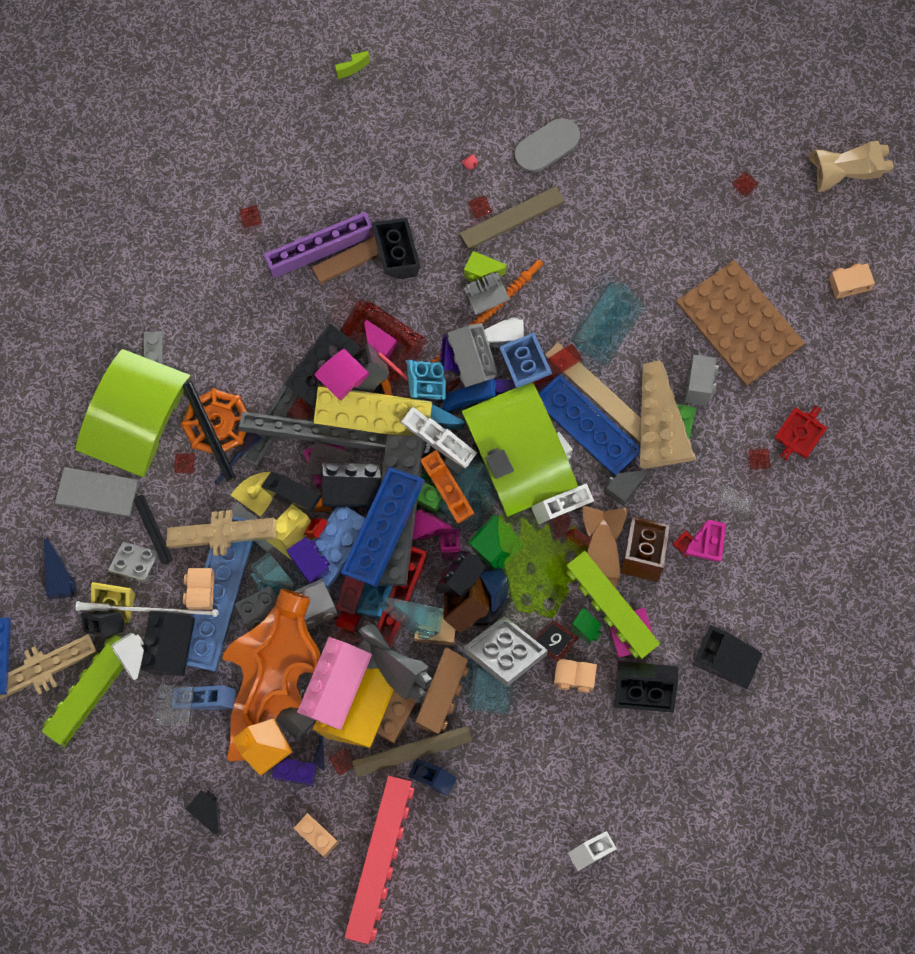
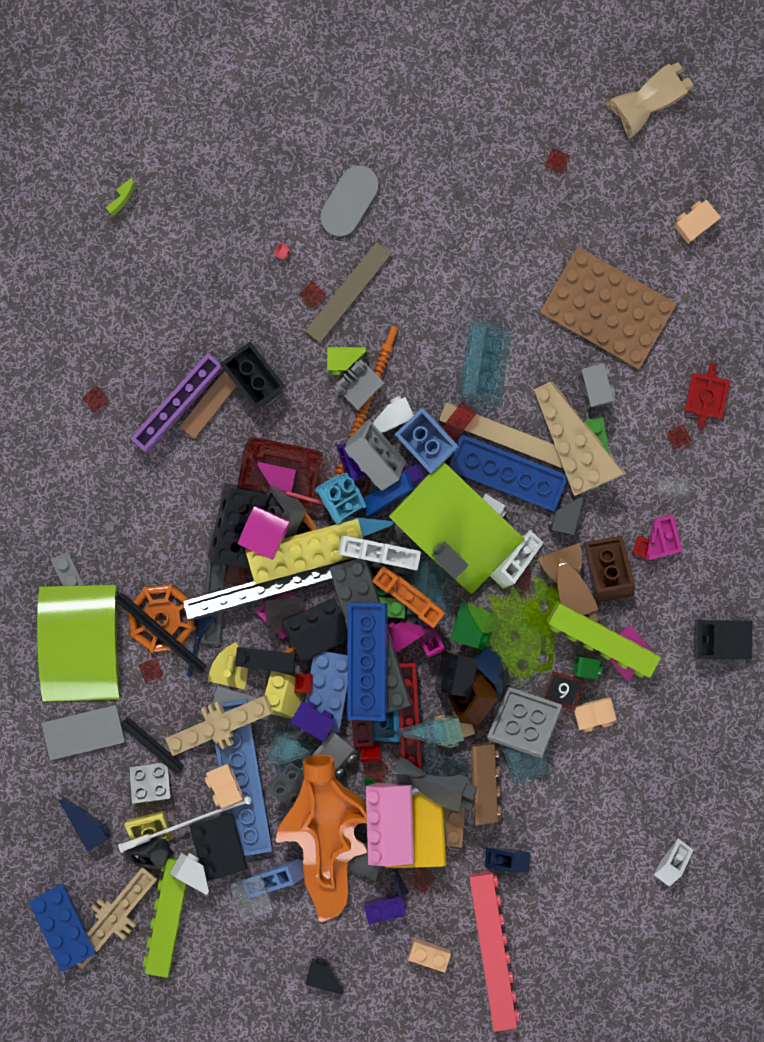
camera: 25 degrees left, 15 degrees up
(262, 745) = (348, 902): light orange slope -> none
(412, 751) = (479, 844): dark tan tile -> none
(578, 537) = (545, 588): clear red tile -> none
(646, 686) = (661, 696): black slope -> none

